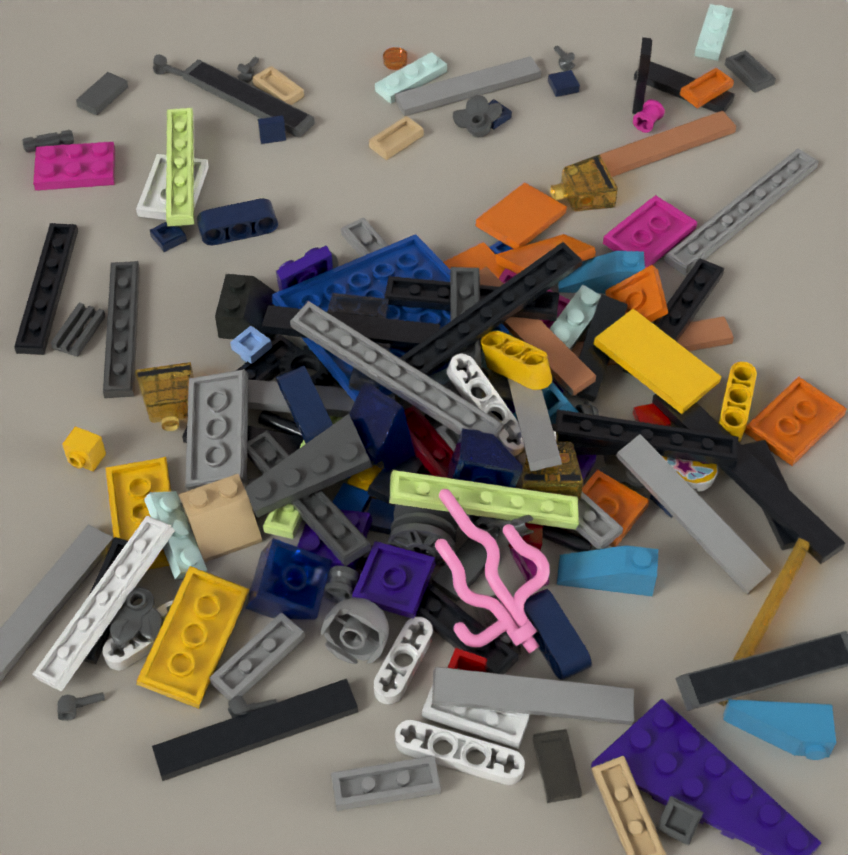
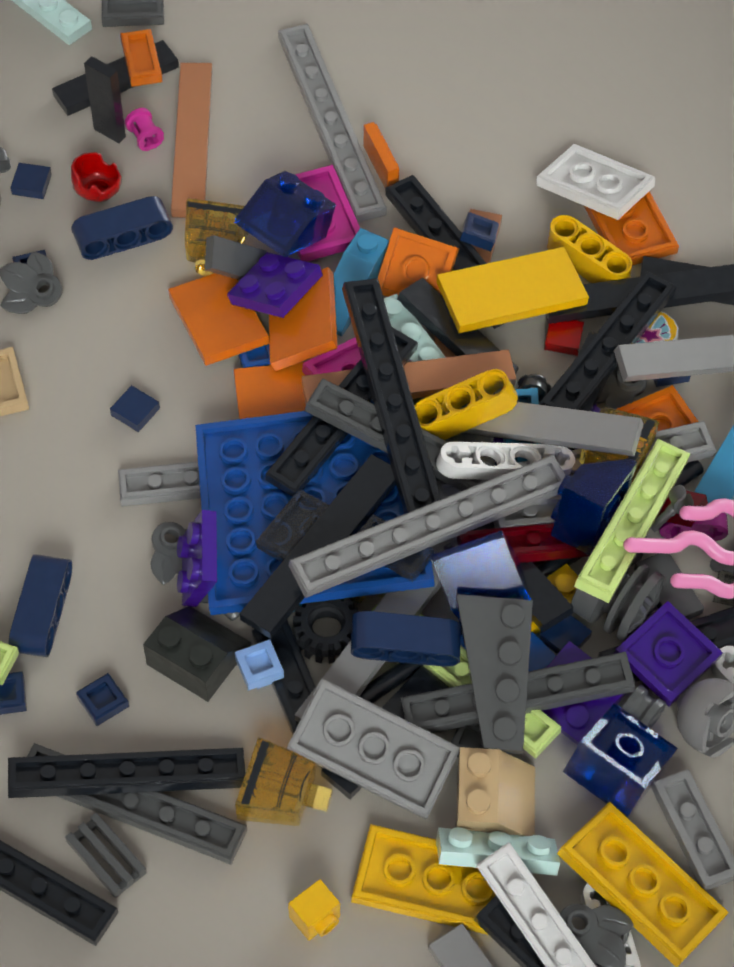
camera: 65 degrees left, 5 degrees up
(135, 308) = (125, 772): none -> black tile
(189, 282) = (102, 699): none -> dark blue tile
(418, 207) = (134, 408): none -> dark blue tile
(556, 138) = (121, 228): none -> dark blue beam
(560, 226) = (275, 284): none -> dark purple plate
(567, 200) = (230, 257): none -> dark grey tile
(585, 106) = (95, 178): none -> red hair
(618, 205) = (287, 214): none -> clear blue slope
(700, 324) = (479, 231): none -> dark blue tile
(729, 244) = (380, 155): none -> orange tile
(810, 380) = (596, 181): none -> white tile

